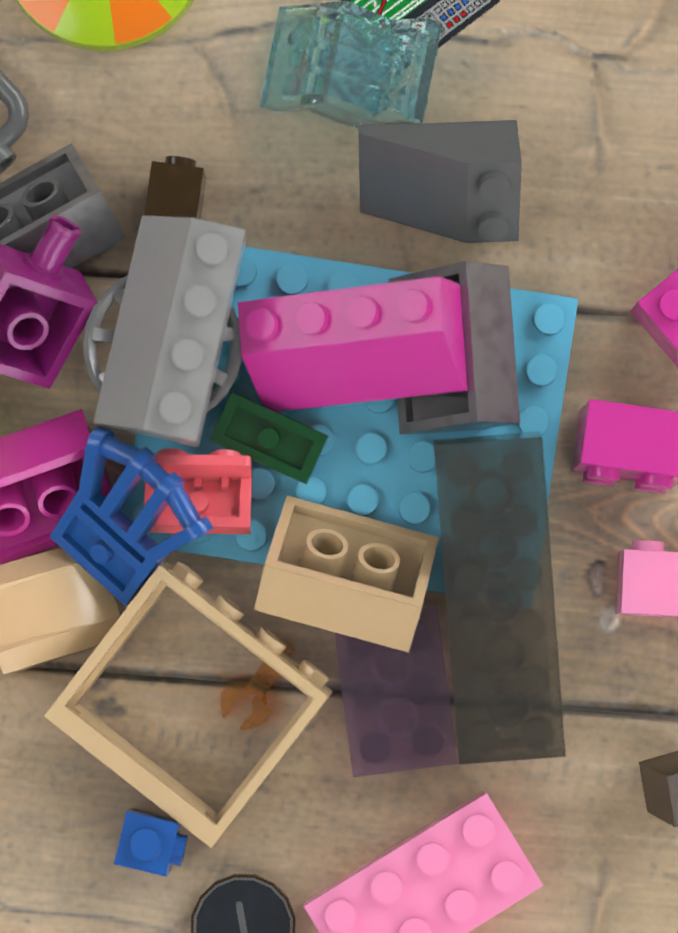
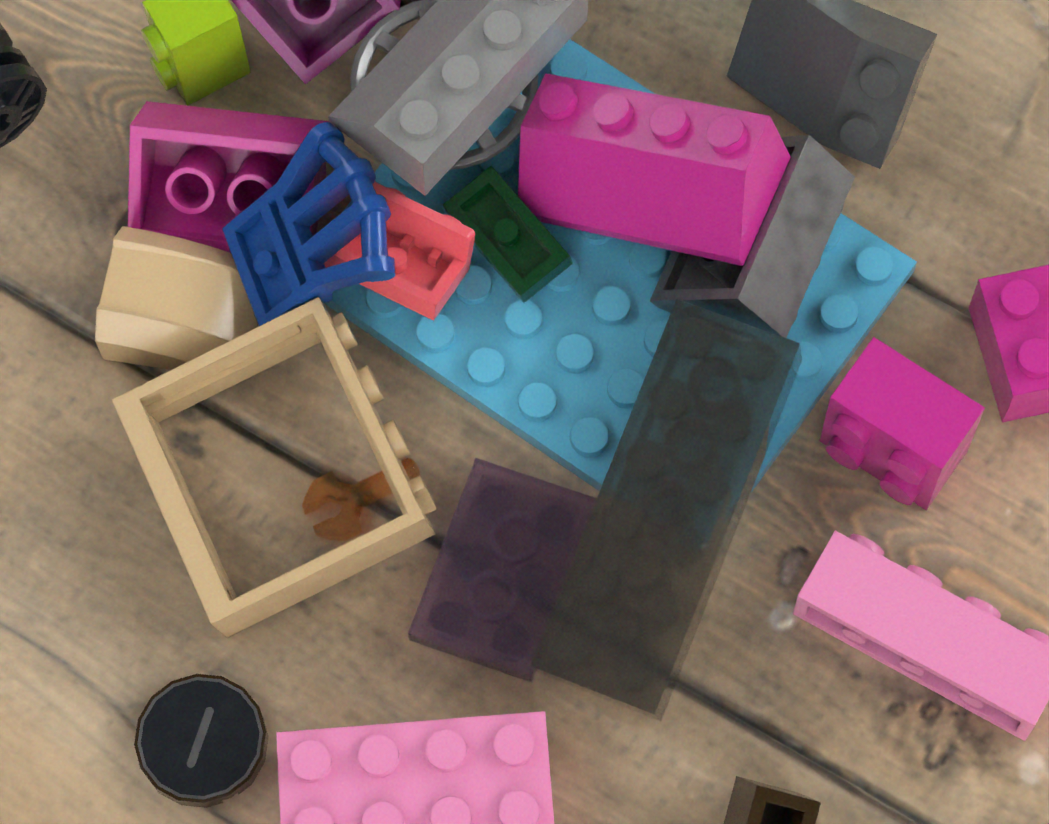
camera: 30 degrees right, 15 degrees down
(150, 843) = (149, 591): blue brick -> none
(346, 573) = (512, 409): tan slope -> none

